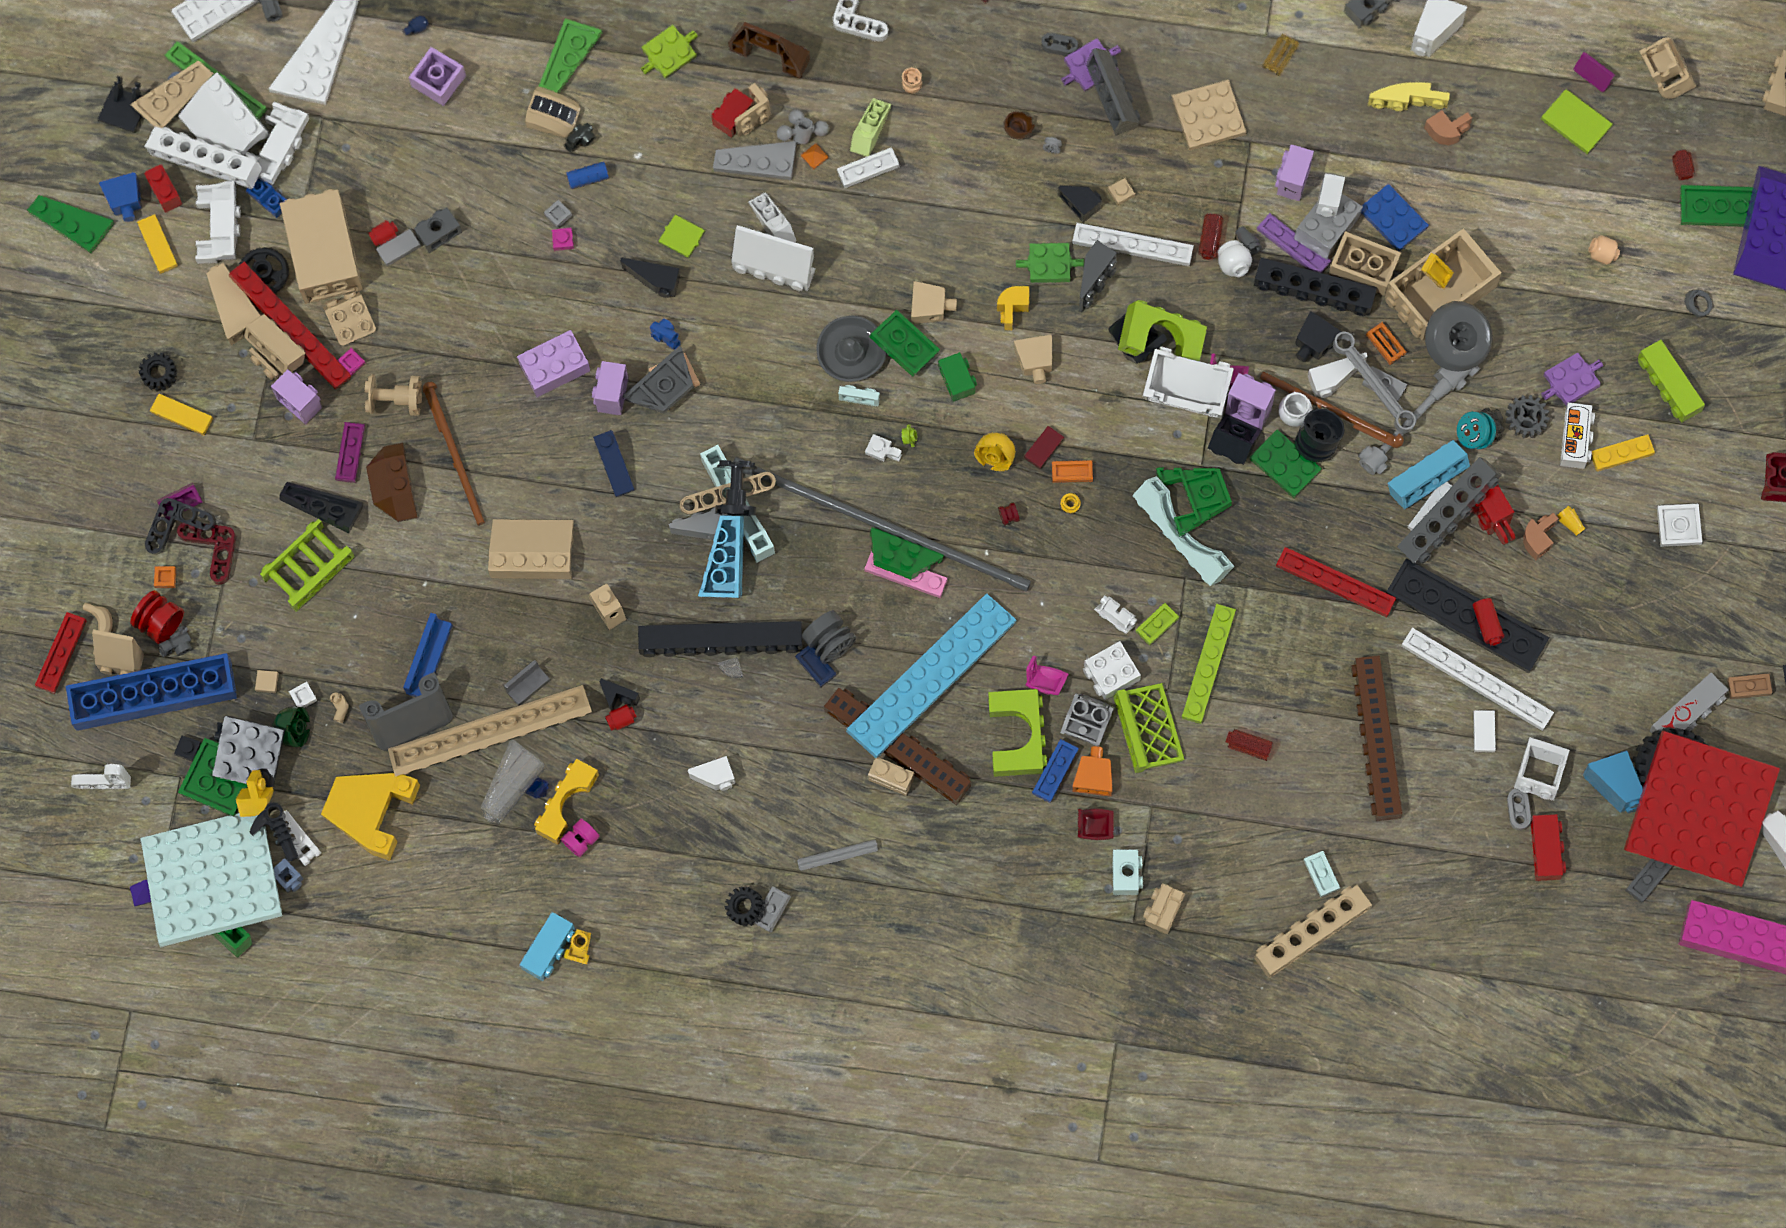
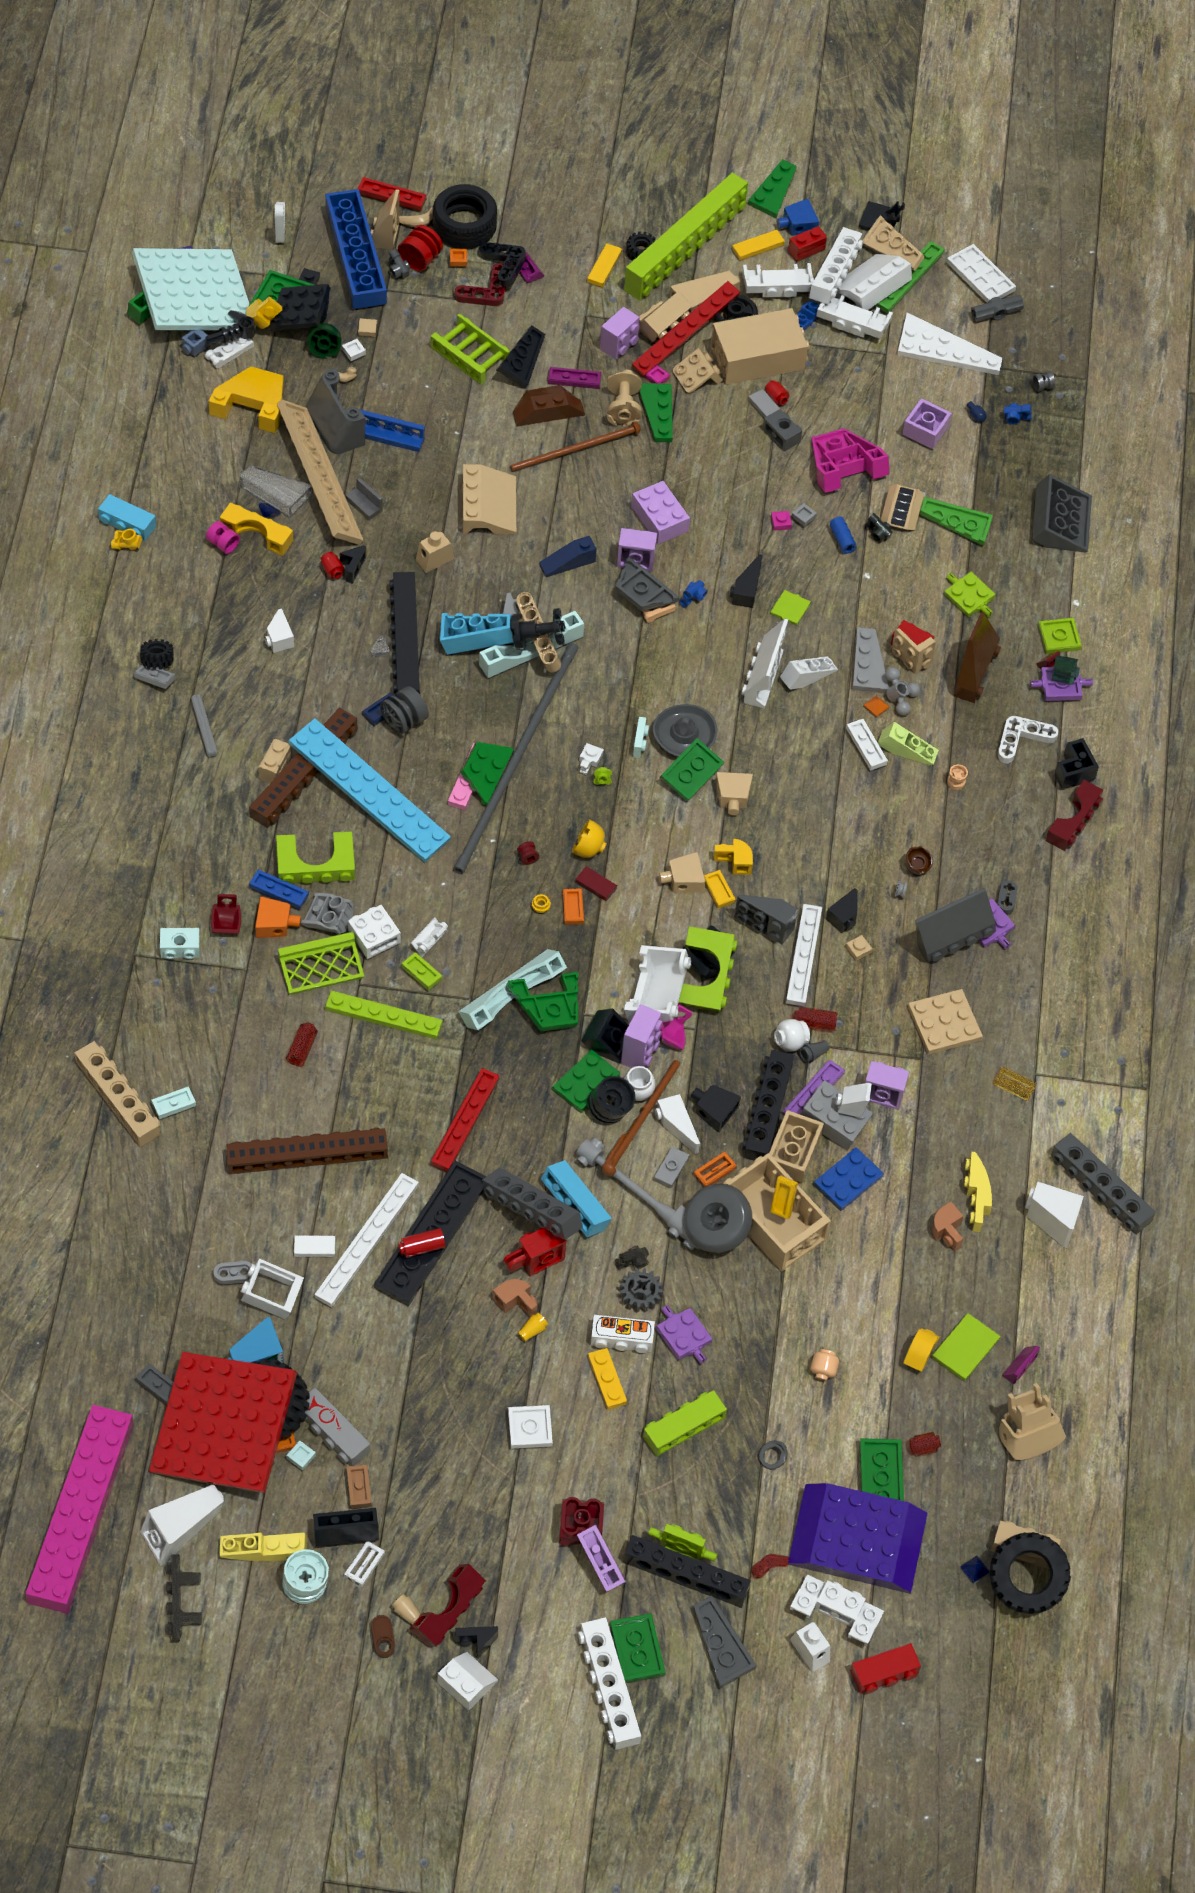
camera: 80 degrees right, 15 degrees down
(94, 542) = (465, 198): none -> black tyre
(151, 318) = (685, 236): none -> lime brick
(401, 362) = (658, 409): none -> green wing
(472, 169) = (845, 454): none -> dark pink wedge
(956, 376) = (661, 812): green brick -> none
(1044, 678) = (366, 880): dark pink piece -> none
(1049, 262) = (782, 884): bright green plate -> none
(1050, 324) = (719, 889): none -> yellow tile
(1164, 909) = (143, 973): tan brick -> none
(1374, 382) = (667, 1147): light grey piece -> none
(1476, 430) = (622, 1239): teal head -> none
(1547, 847) = (193, 1294): red brick -> none
(1586, 158) = (921, 1349): none -> yellow brick
(1719, 739) = (301, 1455): none -> light aqua plate

